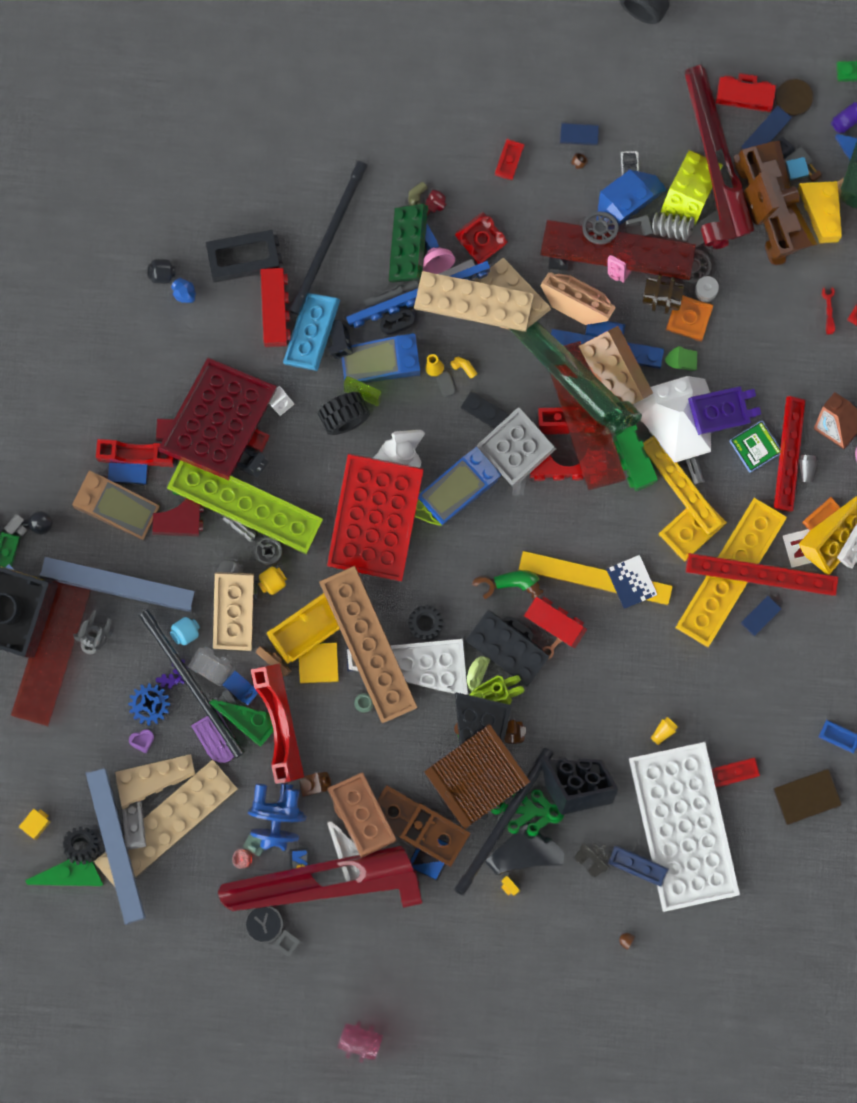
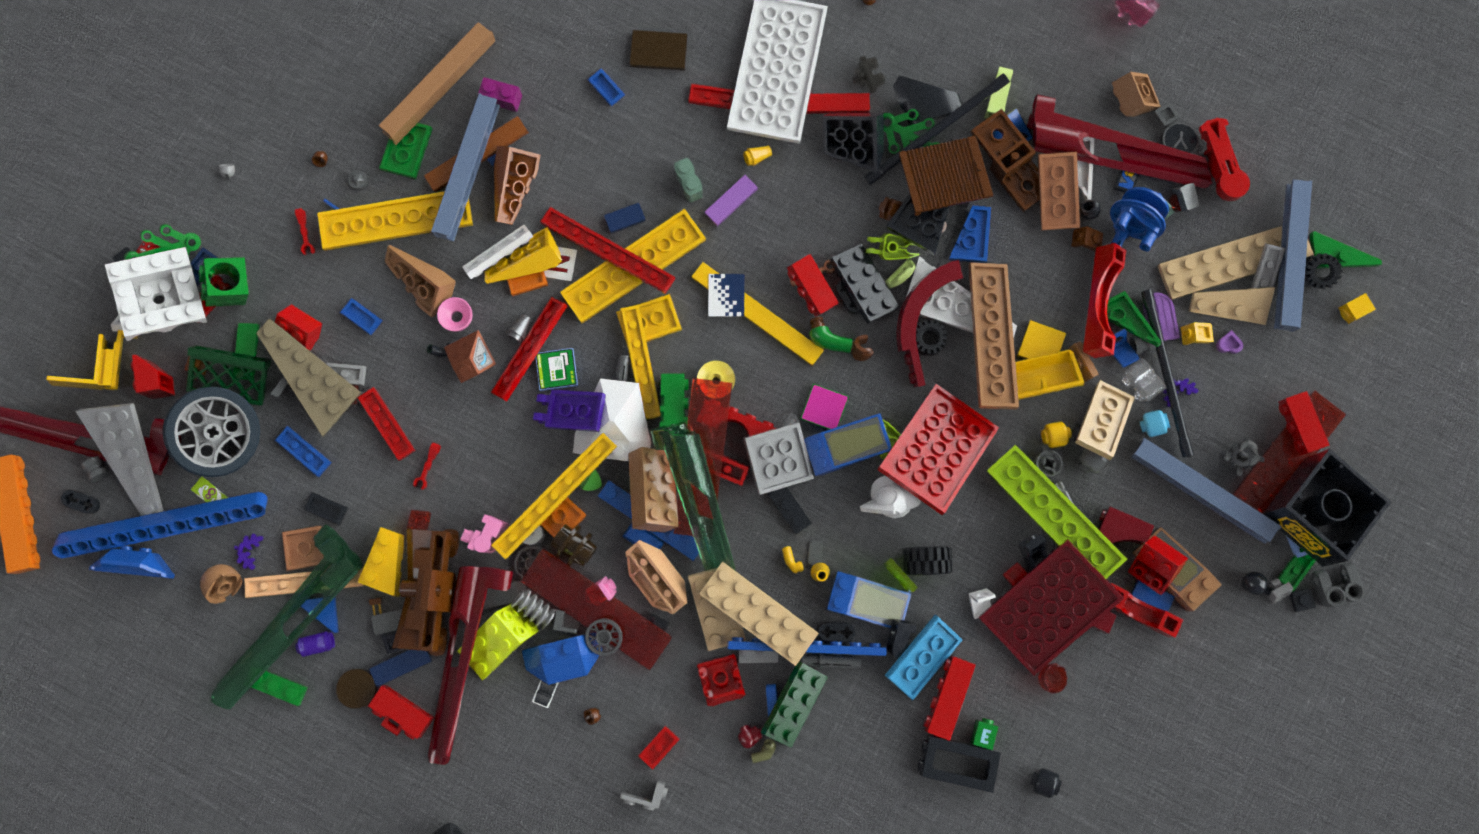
camera: 155 degrees left, 0 degrees up
(50, 685) = (1303, 423): none -> red brick
(136, 498) = (1157, 564): none -> red slope
(159, 700) = (1207, 377): blue gear -> none
(176, 735) = (1197, 333): none -> yellow bracket
(183, 291) = (1031, 753): blue rock -> none
(190, 362) = (1053, 678): none -> clear red hair
(200, 896) = (1222, 163): none -> red piece
(231, 289) = (984, 733): none -> green brick
(237, 865) = (1186, 196): none -> dark grey tile
(300, 298) = (920, 695): black piece -> none
(324, 813) = (1090, 209): none -> black piece
(324, 951) = (1135, 94): none -> medium nougat slope
(363, 703) = (1016, 291): sand green plate -> none
(423, 737) = (974, 237): none -> blue wing
(438, 260) = (773, 674): bright pink piece -> none
(450, 661) = (910, 313): none -> dark red arch
(458, 902) = (998, 100): none -> yellowish green leg
(494, 517) = (824, 407): none -> dark pink tile
(498, 110) = (659, 794): none -> light grey bracket
(509, 887) = (951, 80): yellow plate -> none
(579, 134) = (579, 743): dark blue tile -> none
(609, 818) = (838, 103): none -> red tile
(612, 507) = (717, 369): none -> light yellow dish
(638, 866) = (832, 51): dark blue tile -> none
(668, 676) = (731, 200): none -> medium lavender tile
(700, 326) = (554, 496): none -> yellow plate
(721, 679) = (686, 177): none -> sand green brick
(743, 267) = (482, 540): none -> bright pink hips
(797, 168) = (389, 614): dark azure tile -> none
(812, 259) = (419, 520): none -> clear red tile

